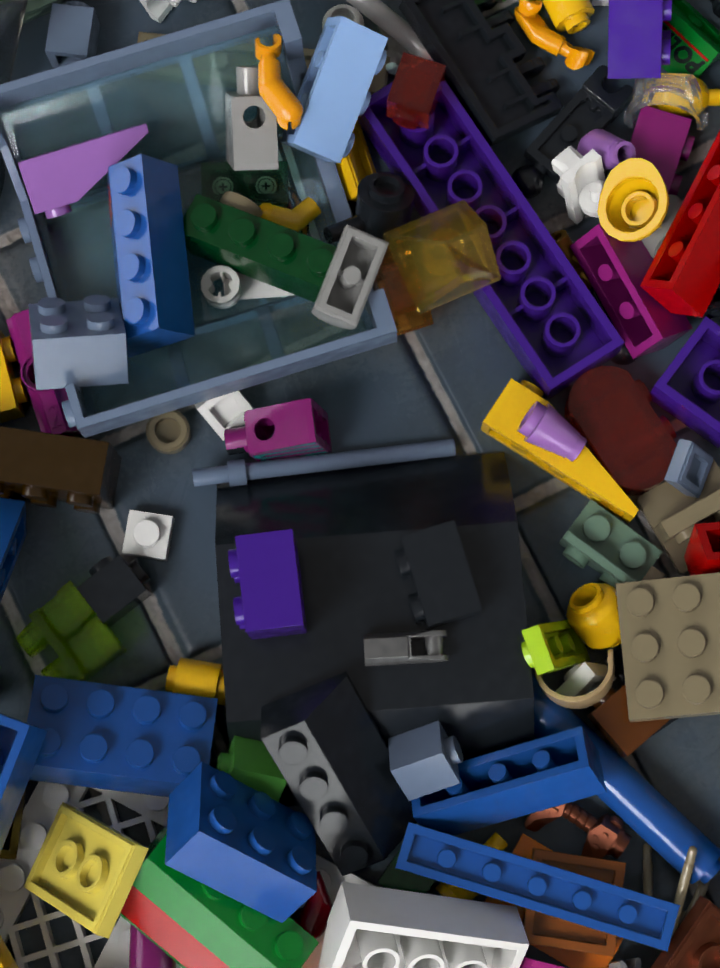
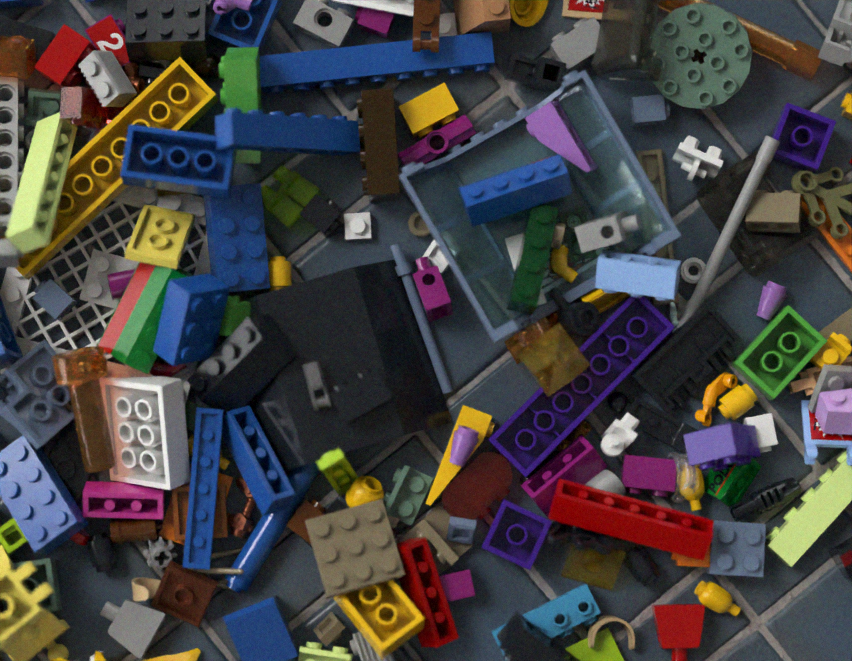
camera: 75 degrees right, 5 degrees up
(78, 342) = (452, 161): sand blue brick -> none
(208, 289) = (512, 243): white bush -> none
(269, 583) = (333, 302): dark purple brick -> none
(272, 87) = (625, 238): light orange arm -> none
(349, 278) = (518, 308): light grey brick -> none
(415, 91) = (647, 322): clear red brick -> none
(424, 760) = (259, 411): sand blue brick -> none
(583, 679) = (324, 494): white plate -> none
(586, 700) = (314, 498): tan helmet -> none
(609, 146) = (644, 443): medium lavender cone -> none
(633, 200) = (609, 464): yellow piece -> none

